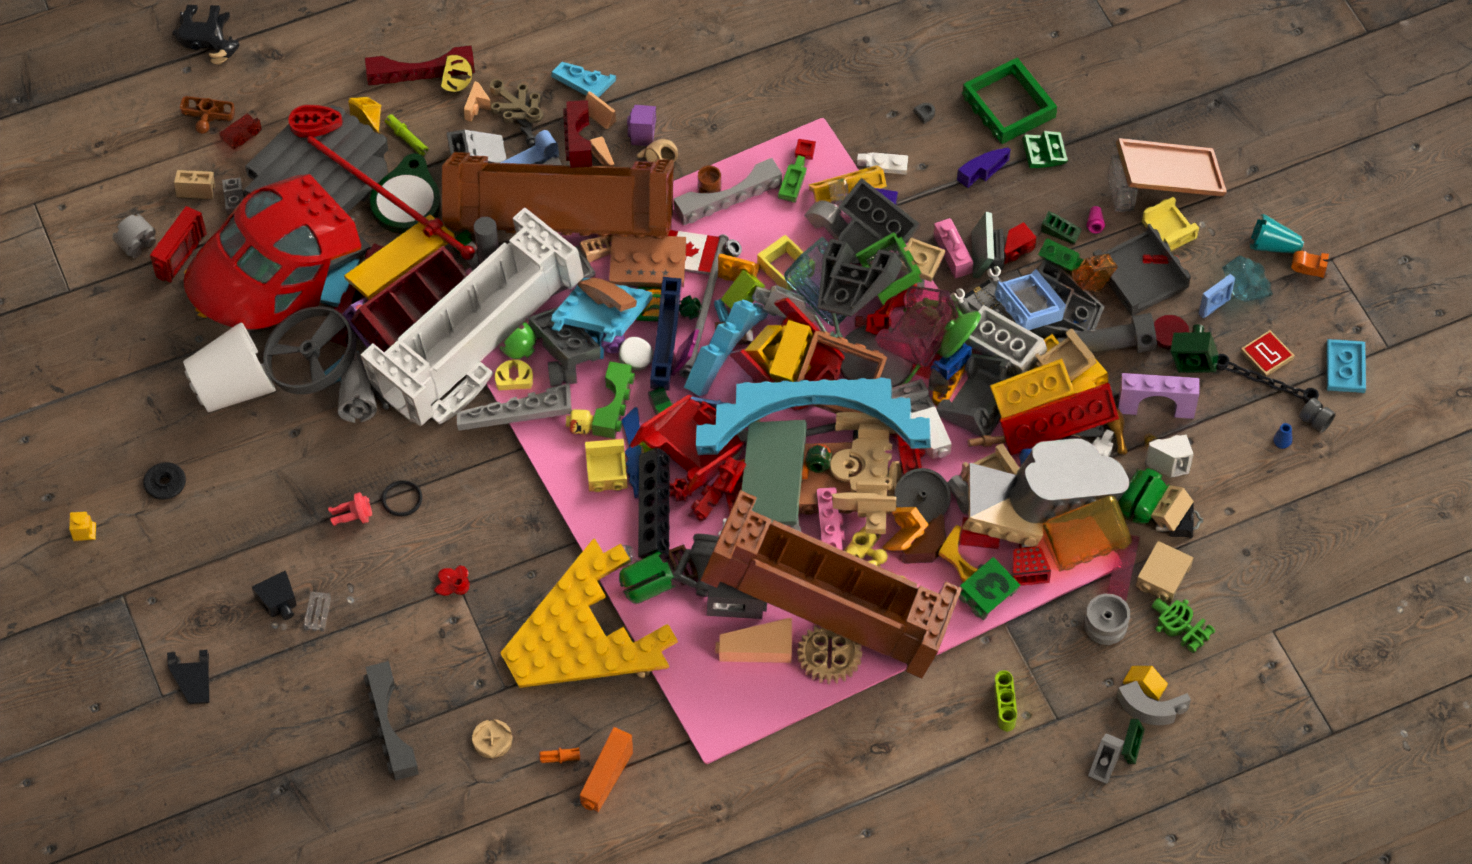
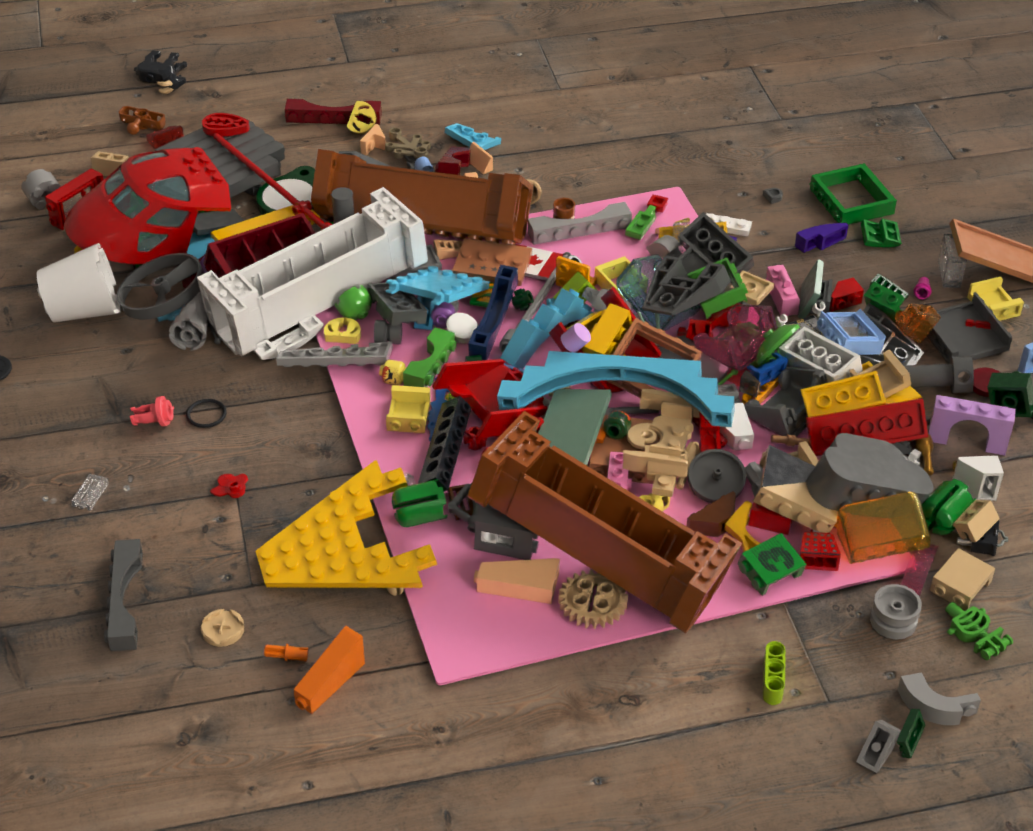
camera: 10 degrees right, 15 degrees down
(276, 595) = (54, 471): black torso -> none
(366, 111) = (276, 132): yellow slope -> none
(400, 129) = (302, 151): lime pin -> none
(607, 293) = (445, 272): nougat slope -> none
(642, 125) = (515, 164): medium lavender brick -> none
(684, 352) = (507, 325): magenta piece -> none
(761, 366) = (575, 337): none -> lavender piece
(912, 527) = (700, 492): light orange bracket -> none
(1148, 680) = (935, 676): yellow slope -> none

